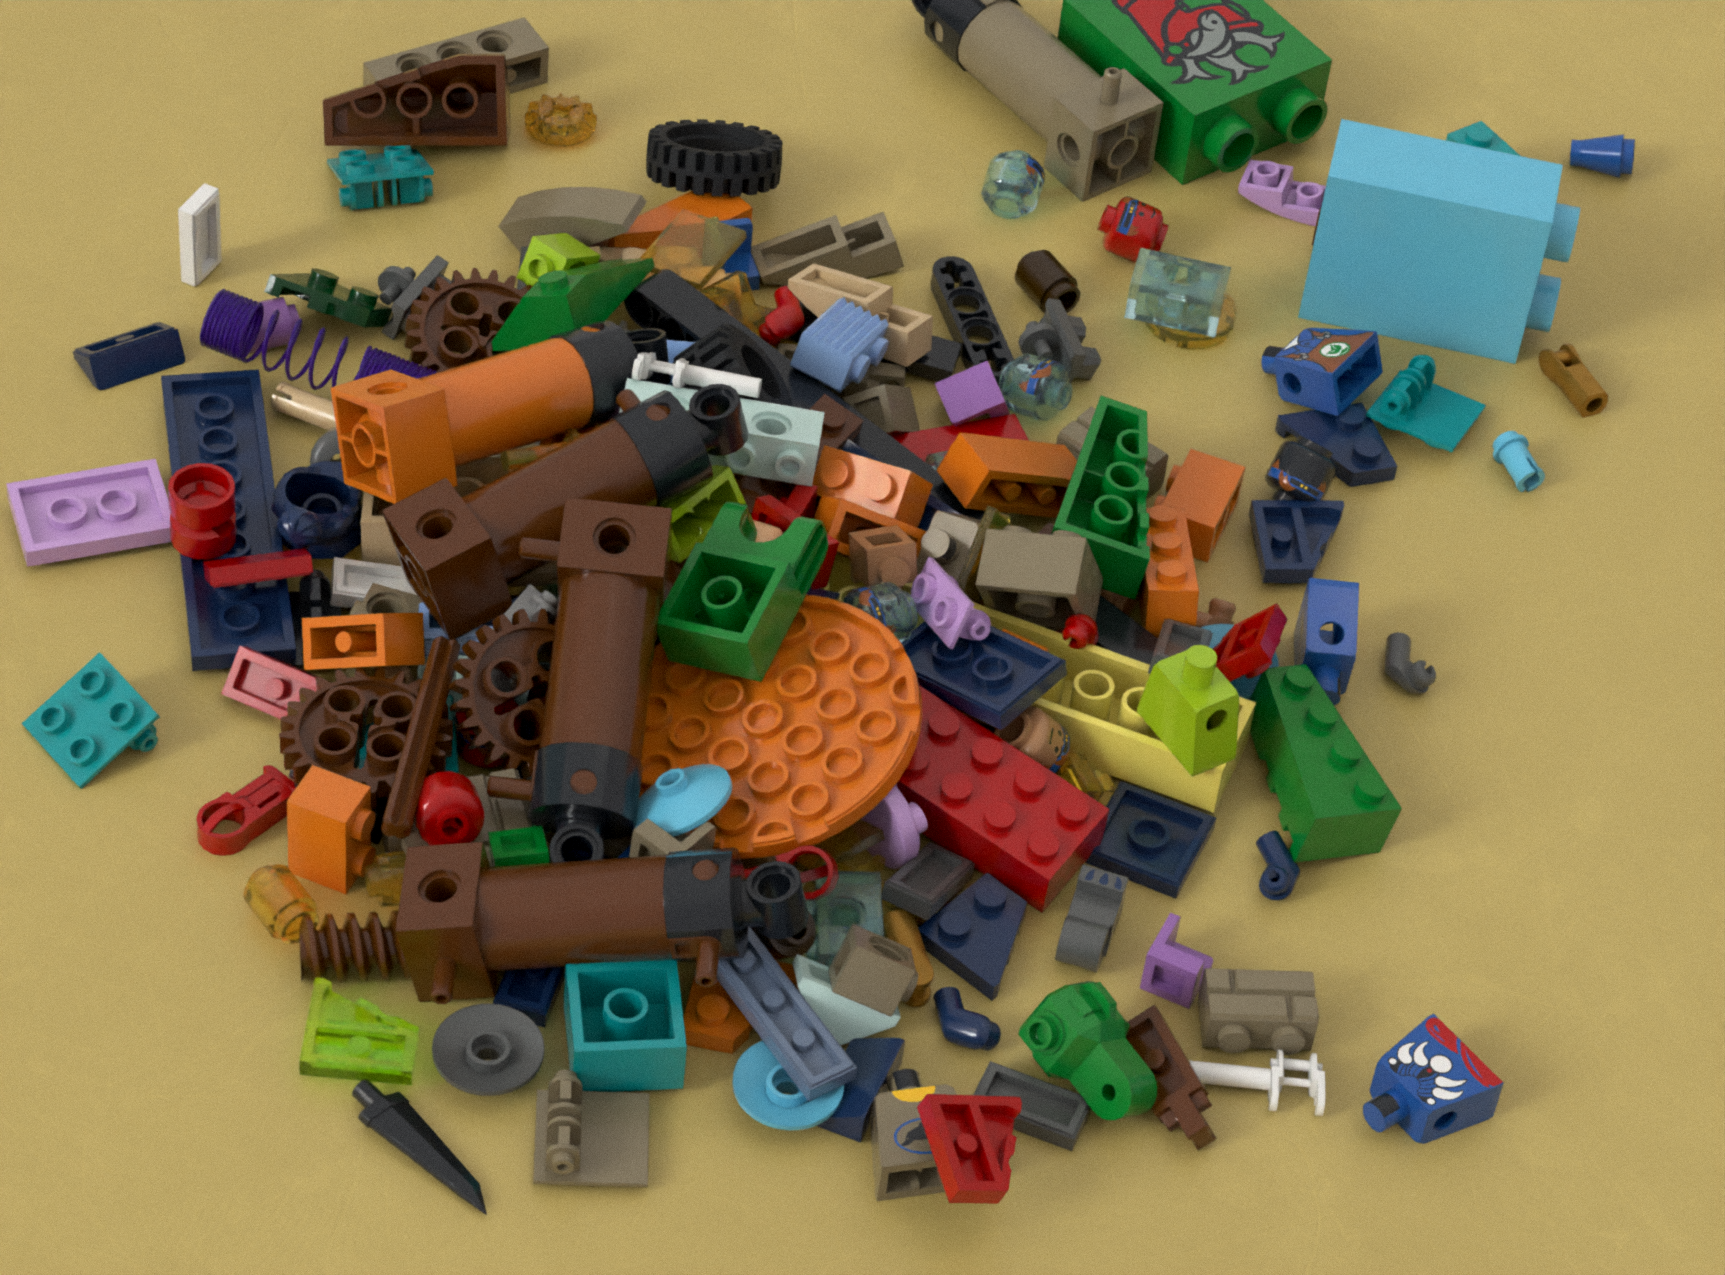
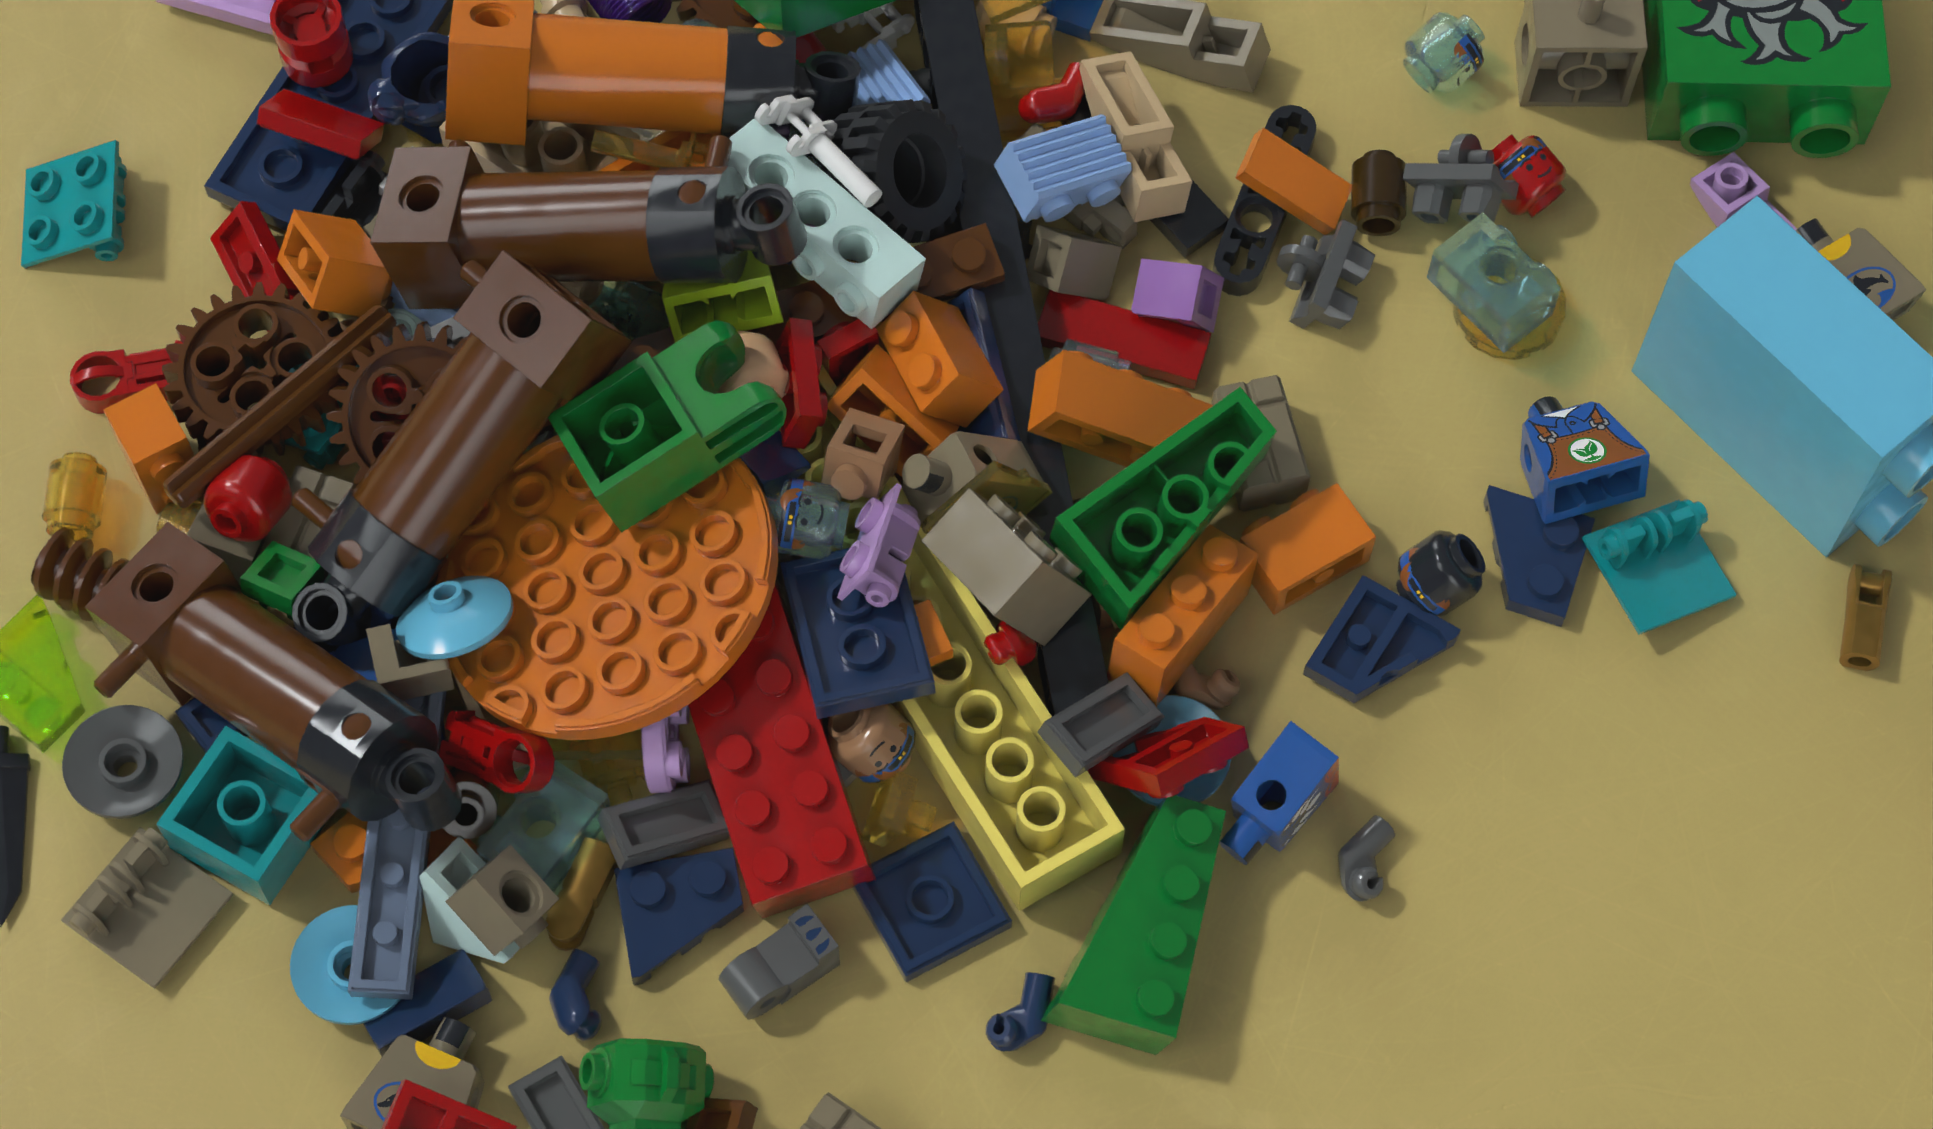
camera: 40 degrees right, 20 degrees up
(990, 296) = (1294, 181): none -> orange tile
(1035, 386) = (1254, 312): clear light blue head -> none
(1098, 243) = (1461, 174): none -> dark grey hips
(1172, 968) = (828, 1059): medium lavender panel -> none
(1192, 709) = (1020, 808): lime torso -> none
(1512, 452) = (1707, 683): medium azure pin -> none

